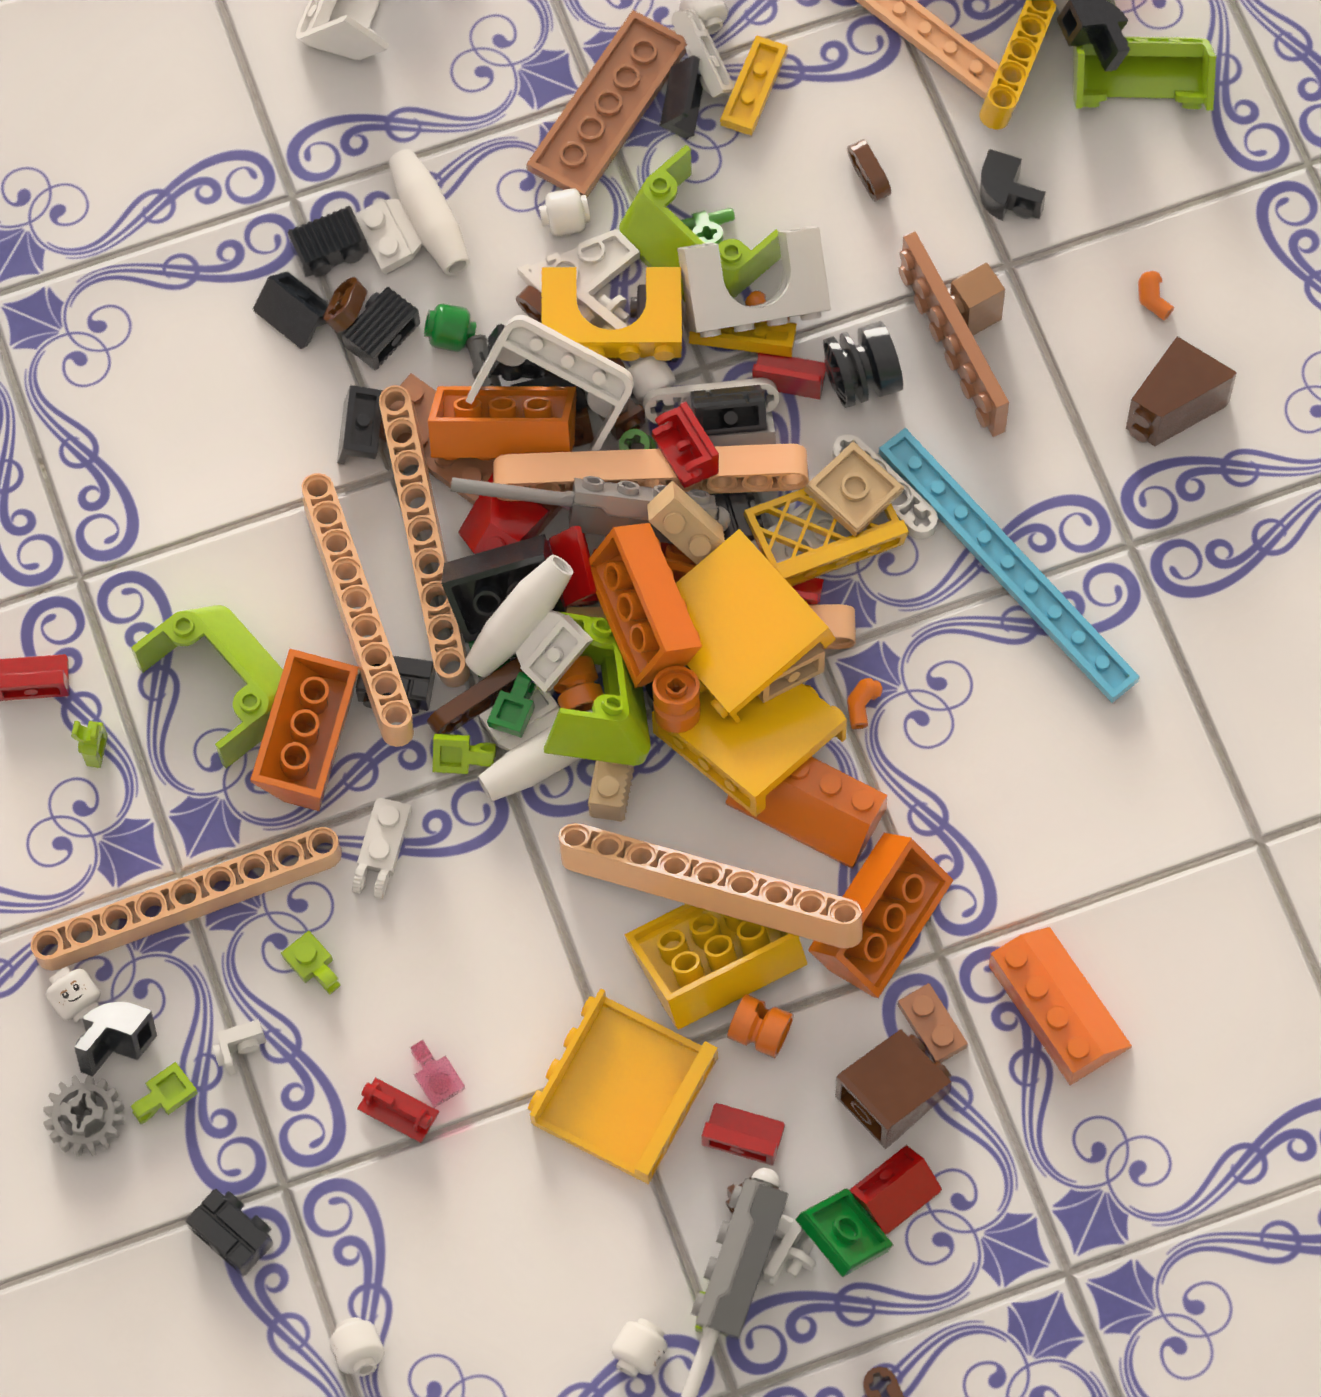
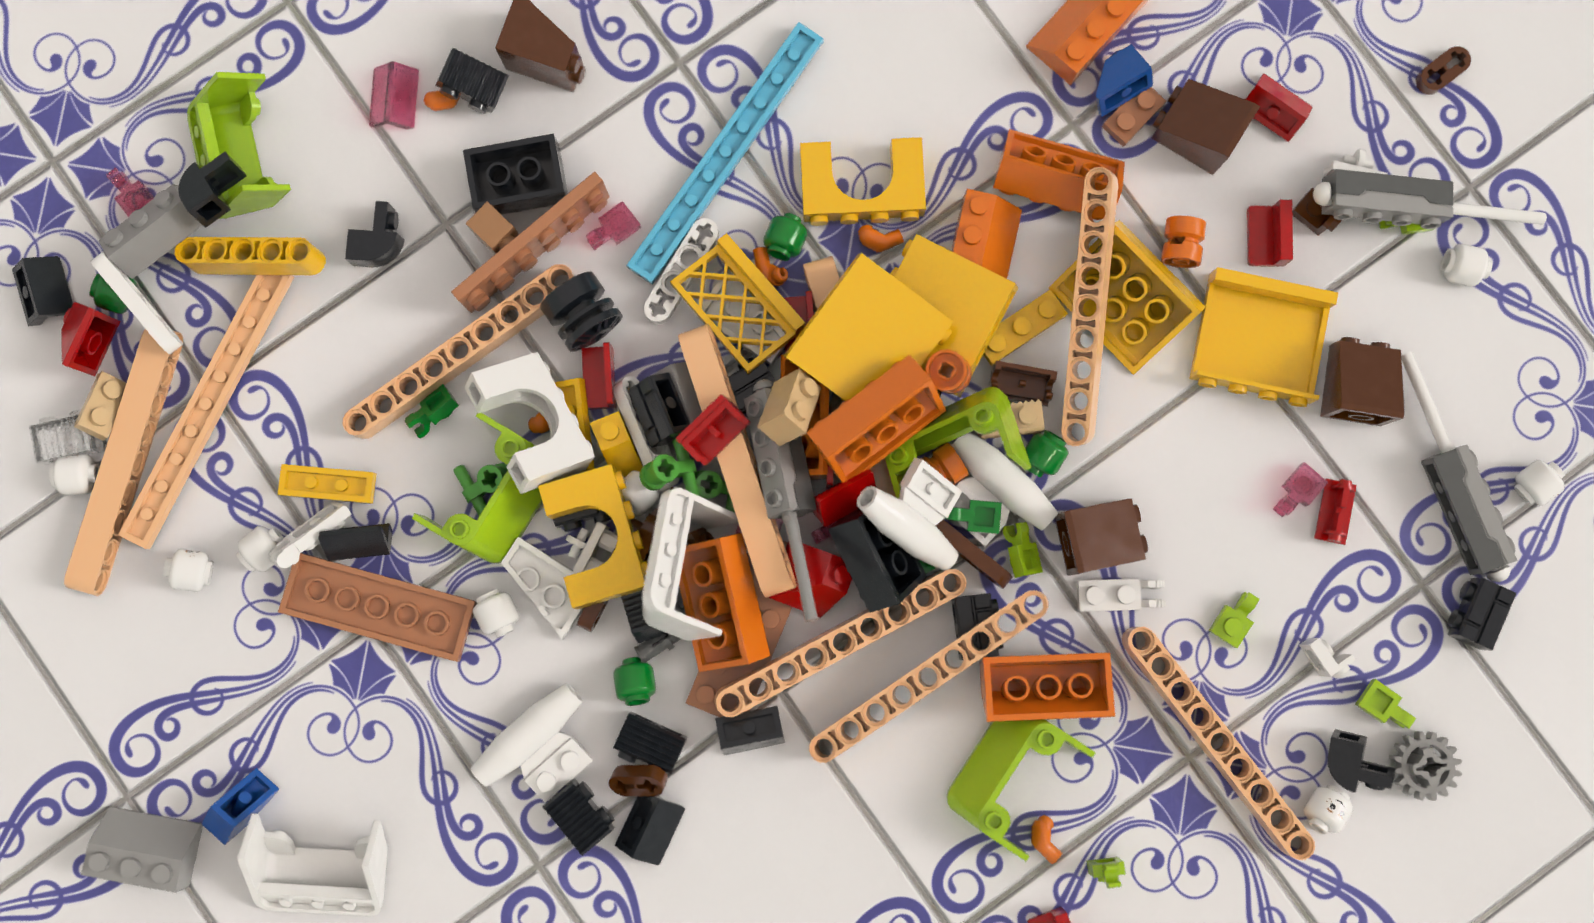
camera: 110 degrees left, 15 degrees up
(145, 690) = (1041, 838): none -> orange arm
(372, 1256) = (1463, 494): none -> piece
(450, 833) = (1100, 536): none -> reddish brown slope
(535, 1175) = (1363, 383): none -> reddish brown slope
(561, 805) = (1046, 453): none -> green head
(651, 805) = (1023, 382): none -> reddish brown hinge
(658, 403) = (665, 469): none -> bright green piece
(708, 365) = (616, 443): none -> yellow slope
(714, 822) = (1024, 326): none -> yellow plate
(803, 204) = (433, 409): none -> green plate
(844, 1232) = (1331, 131): green tile -> none
(853, 229) = (446, 355): none -> light nougat beam
(854, 489) = (701, 287): tan tile -> none
(859, 574) = (774, 274): none -> orange arm
(869, 170) = (387, 360): reddish brown beam -> none
(890, 598) = (785, 237): none -> green head
(923, 651) = (826, 202): none -> yellow arch
(955, 433) = (616, 224): none -> clear pink plate
(973, 1010) = (1122, 78): none -> blue slope
(1036, 338) = (516, 174): none -> black brick
(1157, 317) = (471, 81): none -> black brick
(1165, 243) = (394, 95): none -> clear pink panel

